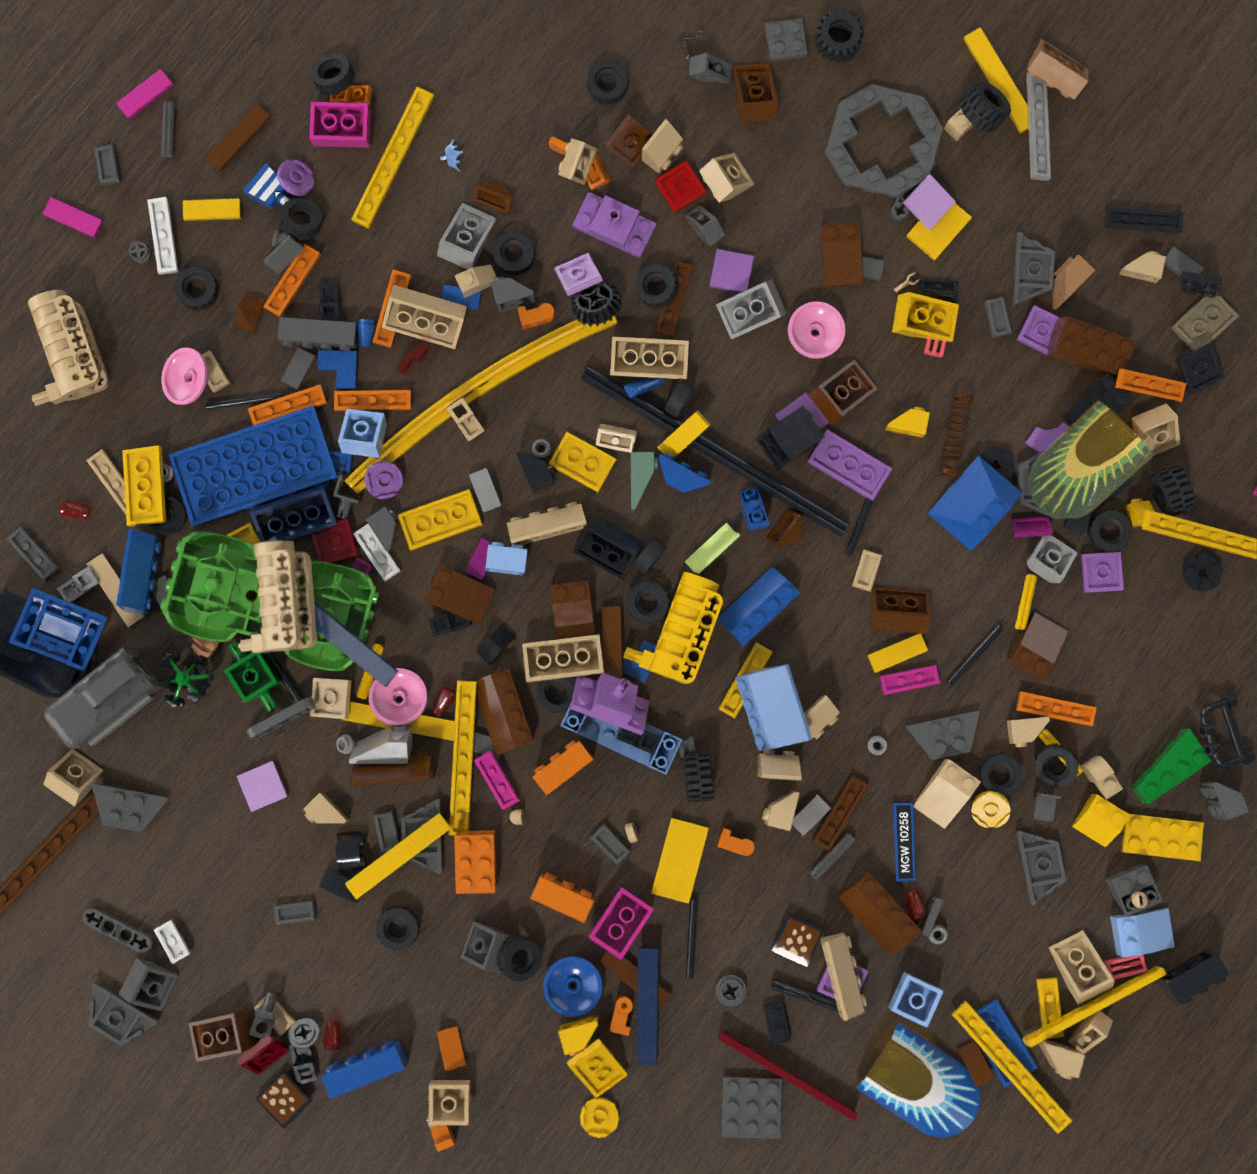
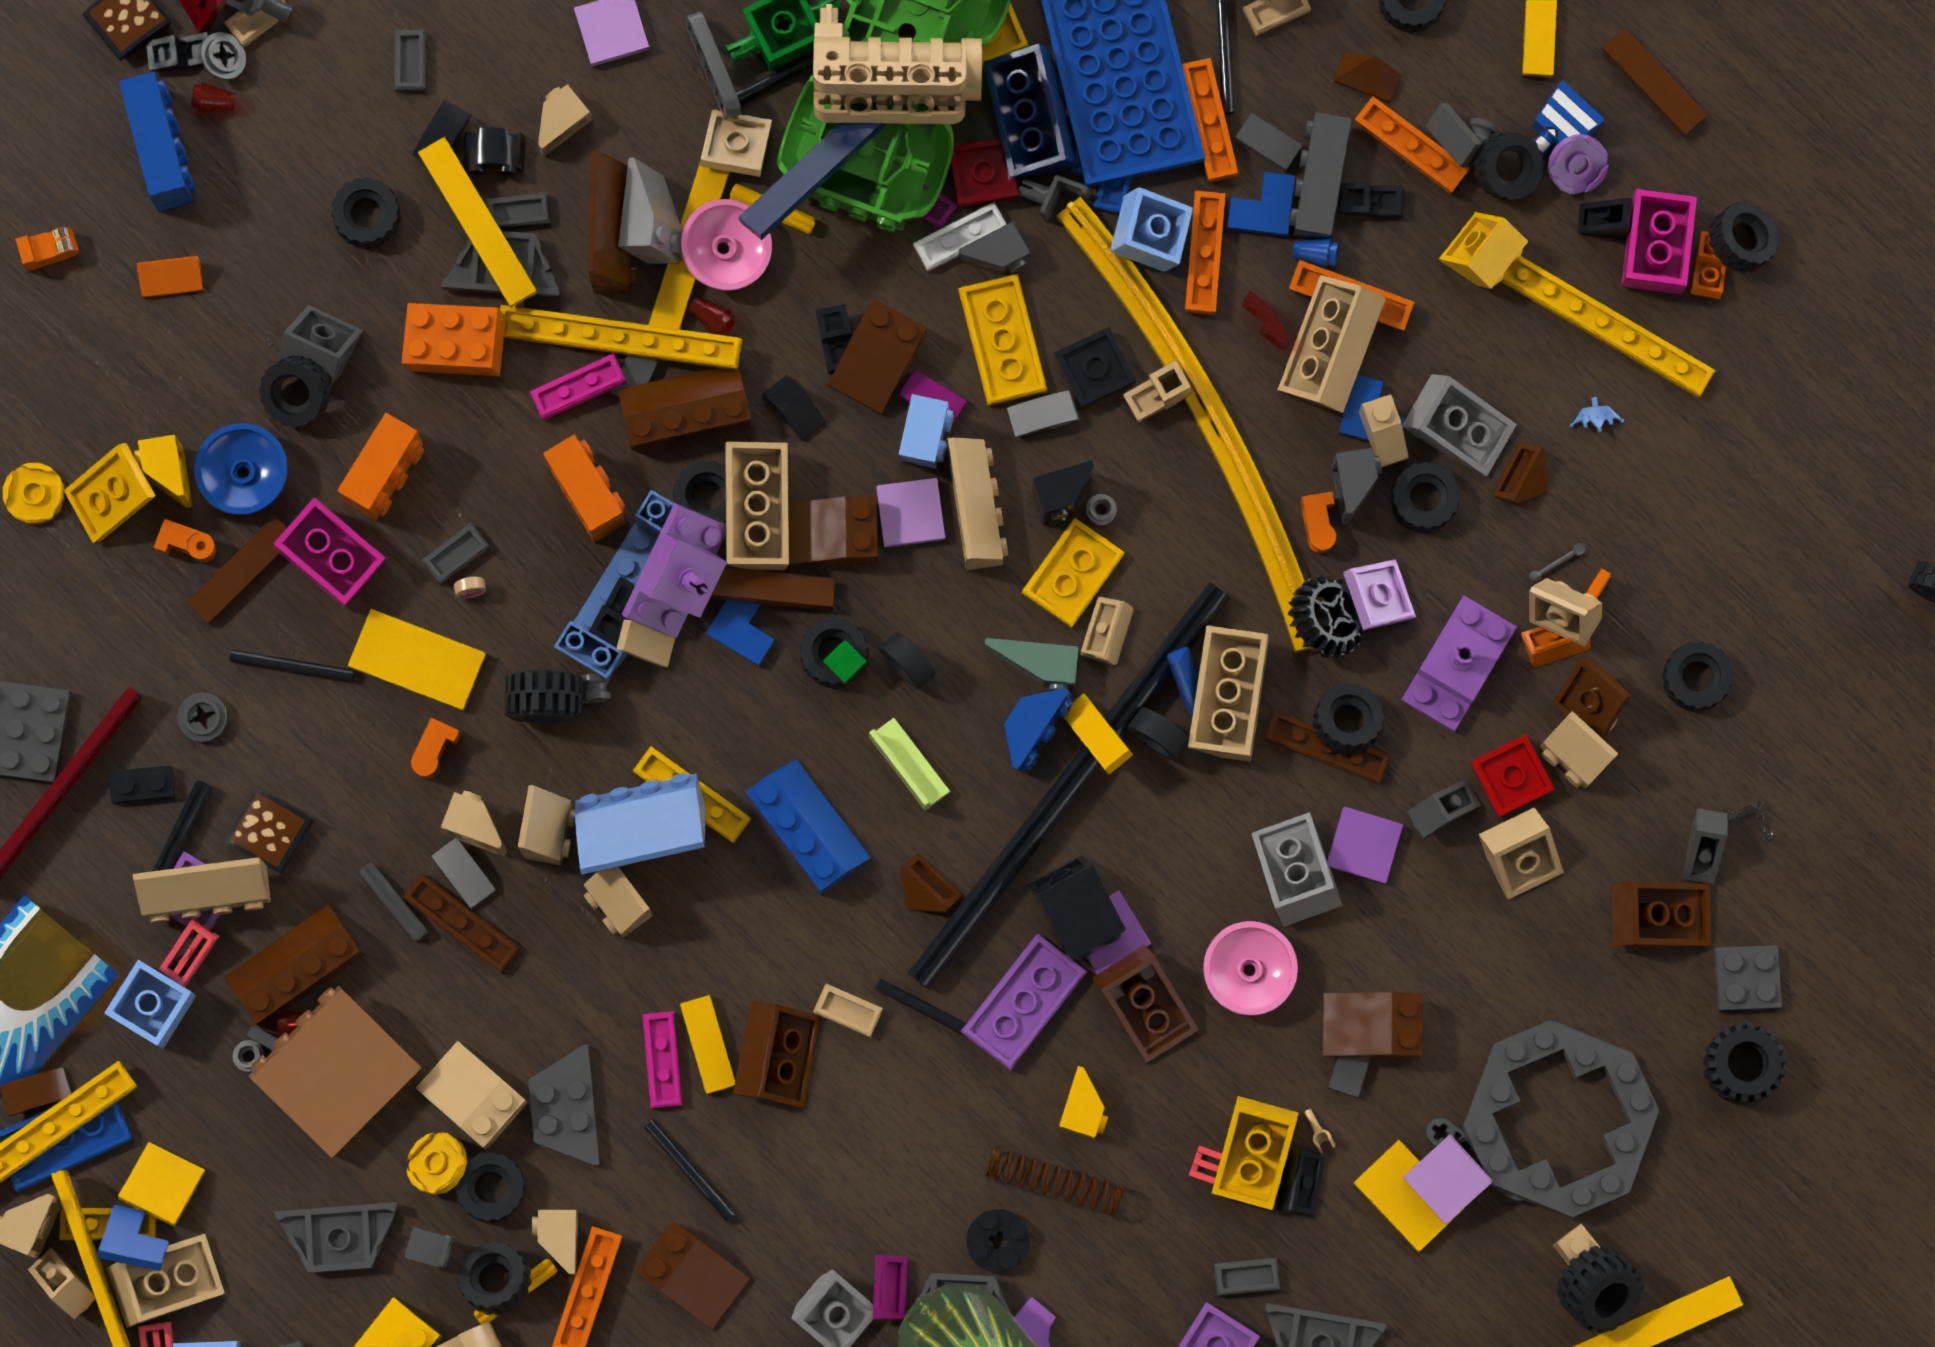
camera: 95 degrees right, 5 degrees down
(327, 158) = (1605, 218): none -> black slope
(345, 744) = (662, 159): light grey plate -> none
(355, 229) = (1484, 249): none -> yellow slope
(383, 479) = (1074, 256): medium lavender tile -> none
(449, 1102) = (88, 264): tan slope -> none
(452, 461) = (1094, 367): none -> black plate
(517, 817) = (516, 414): tan hinge -> none
(536, 160) = (1578, 550): none -> dark grey hinge
(555, 565) = (910, 512): none -> lavender tile
(608, 546) = (931, 598): black slope -> none
(647, 1006) = (195, 583): dark blue tile -> none
(655, 593) = (844, 661): none -> green tile
(656, 718) = (645, 643): none -> tan tile
(680, 630) = (779, 696): yellow piece -> none
(753, 510) = (965, 834): blue slope -> none
(867, 972) = (203, 932): none -> coral tile
(883, 745) = (560, 984): light grey plate -> none
(904, 842) = (417, 1019): tile -> none
(944, 880) = (333, 1070): none -> medium nougat panel
(975, 503) = (939, 1198): blue slope -> none
(1023, 978) = (161, 1184): none -> yellow tile
(1025, 603) = (767, 1264): yellow axle -> none
(1069, 993) = (125, 1244): none -> tile

